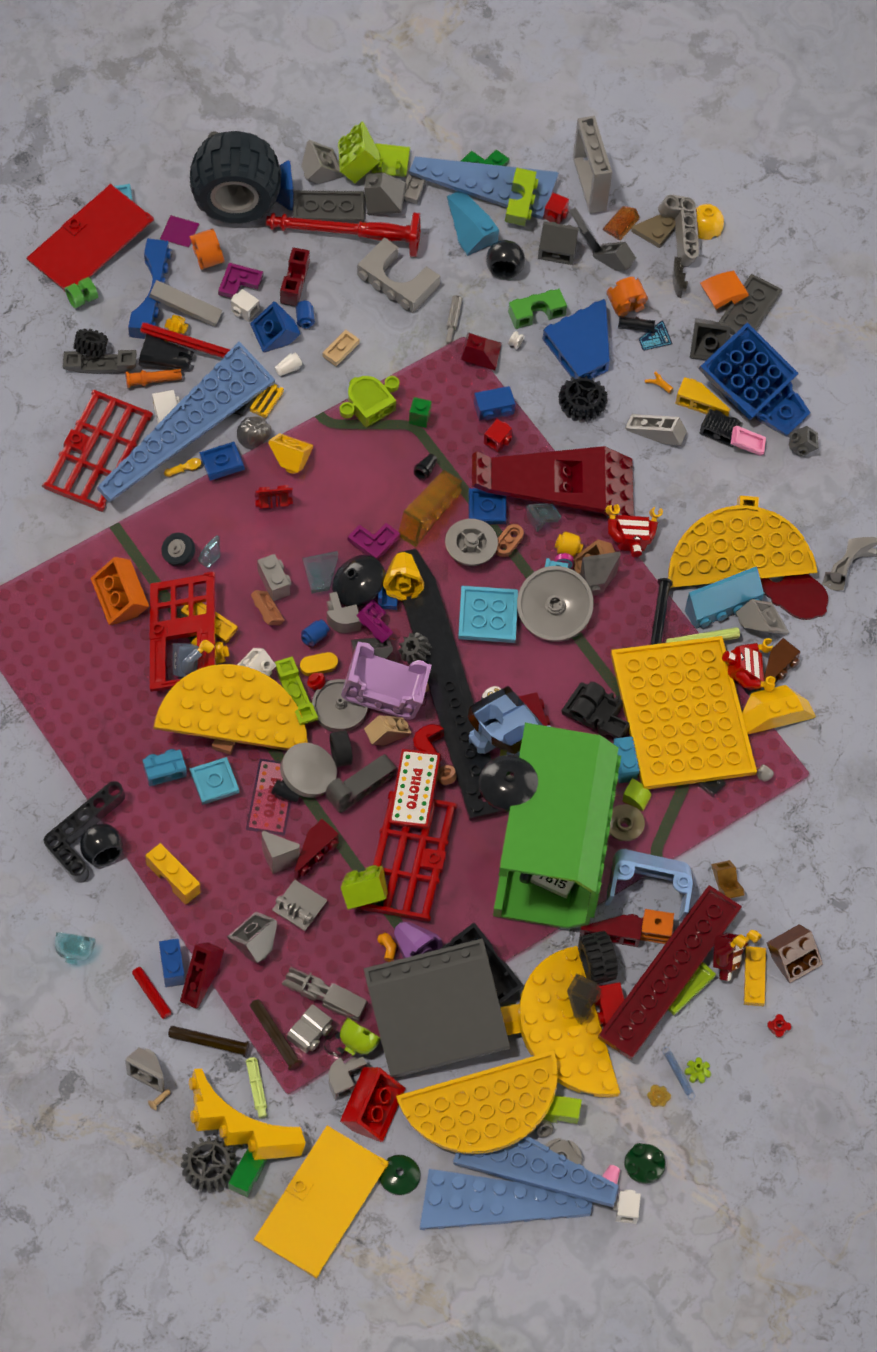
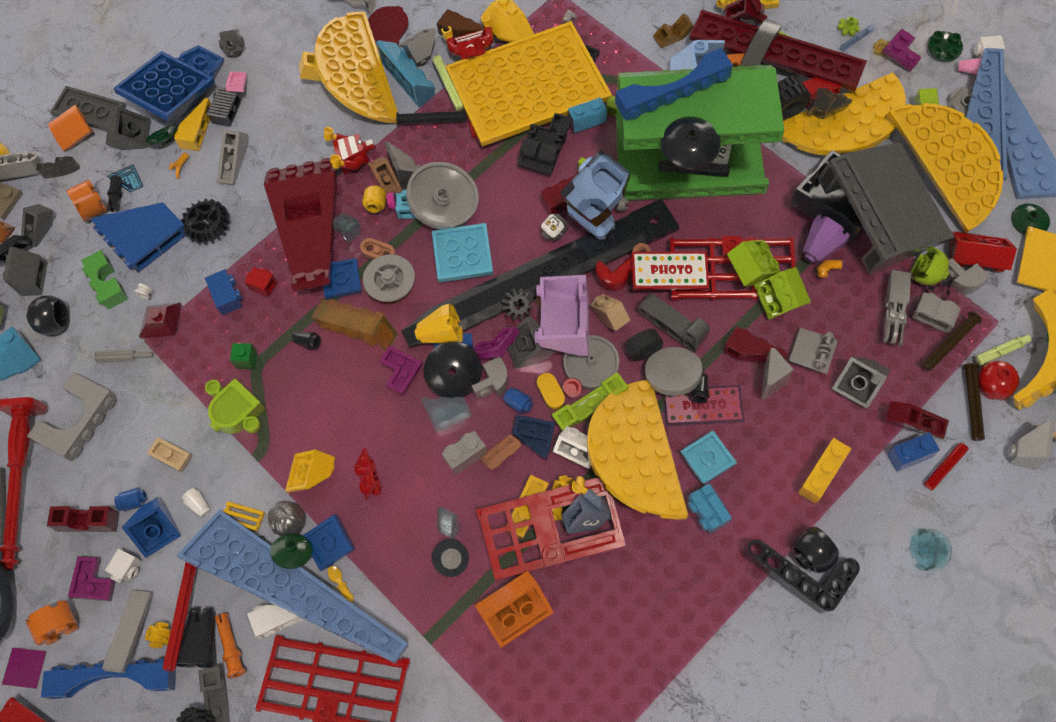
camera: 90 degrees left, 5 degrees up
(213, 432) = (291, 557): none -> dark green dish
(225, 1070) = (998, 380): none -> red cylinder
(278, 640) = (535, 434): none -> dark blue wing
(404, 867) = (753, 262): none -> lime slope
(583, 811) = (639, 99): none -> blue arch
(650, 1108) = (899, 50): none -> magenta plate
(674, 947) = (761, 42): none -> dark grey slope
(691, 363) = (161, 136): none -> dark green dish

